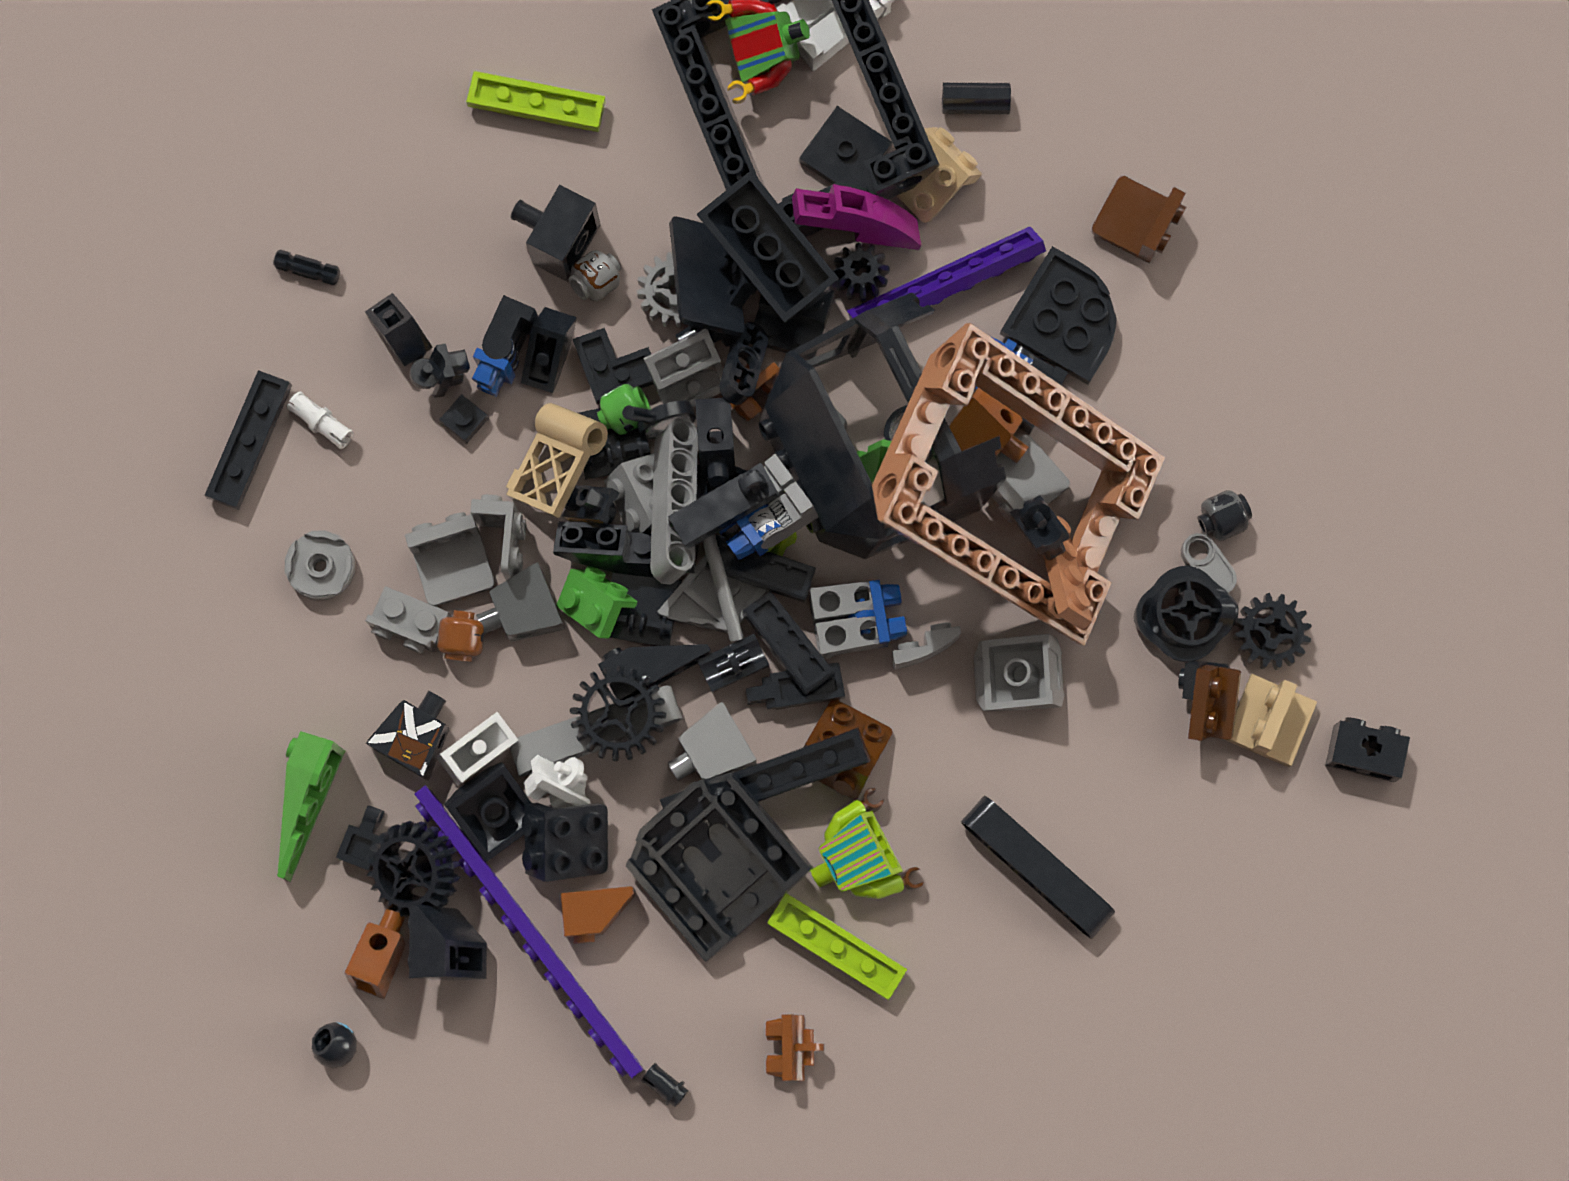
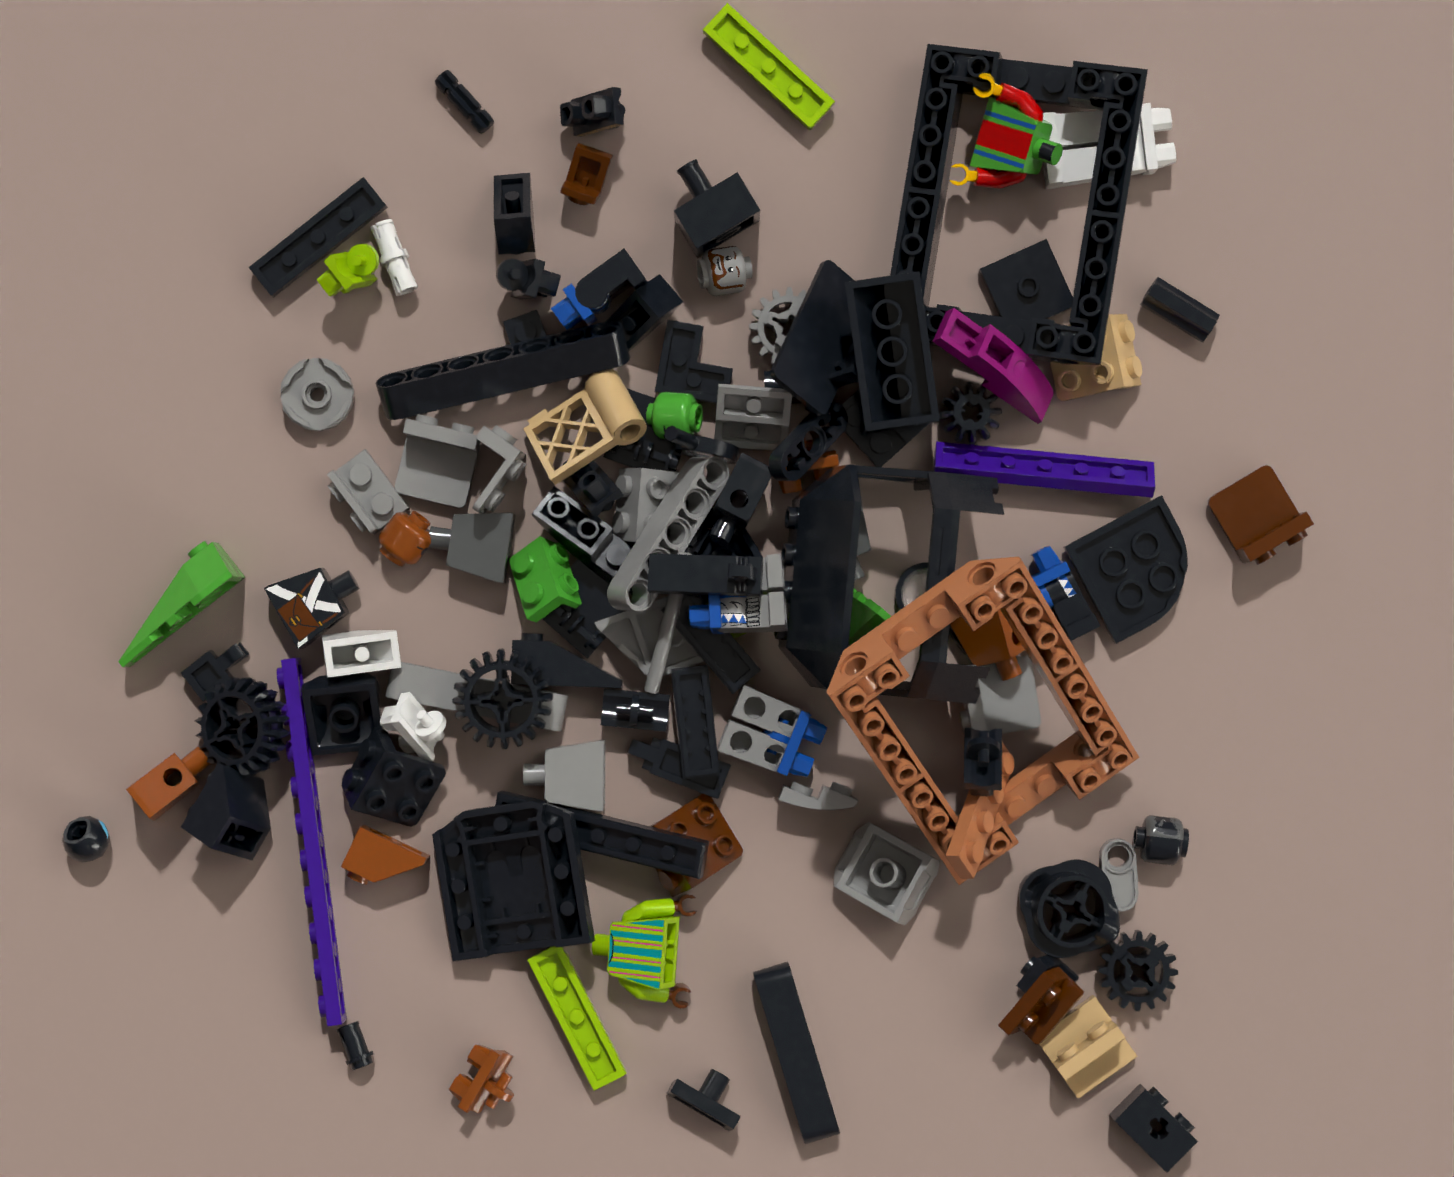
camera: 25 degrees right, 10 degrees up
(289, 447) = (350, 270): none -> lime hips
(417, 212) = (593, 112): none -> black hips
(439, 265) = (586, 175): none -> reddish brown bracket
(461, 455) = (503, 370): none -> black beam
(987, 952) = (706, 1099): none -> black tile

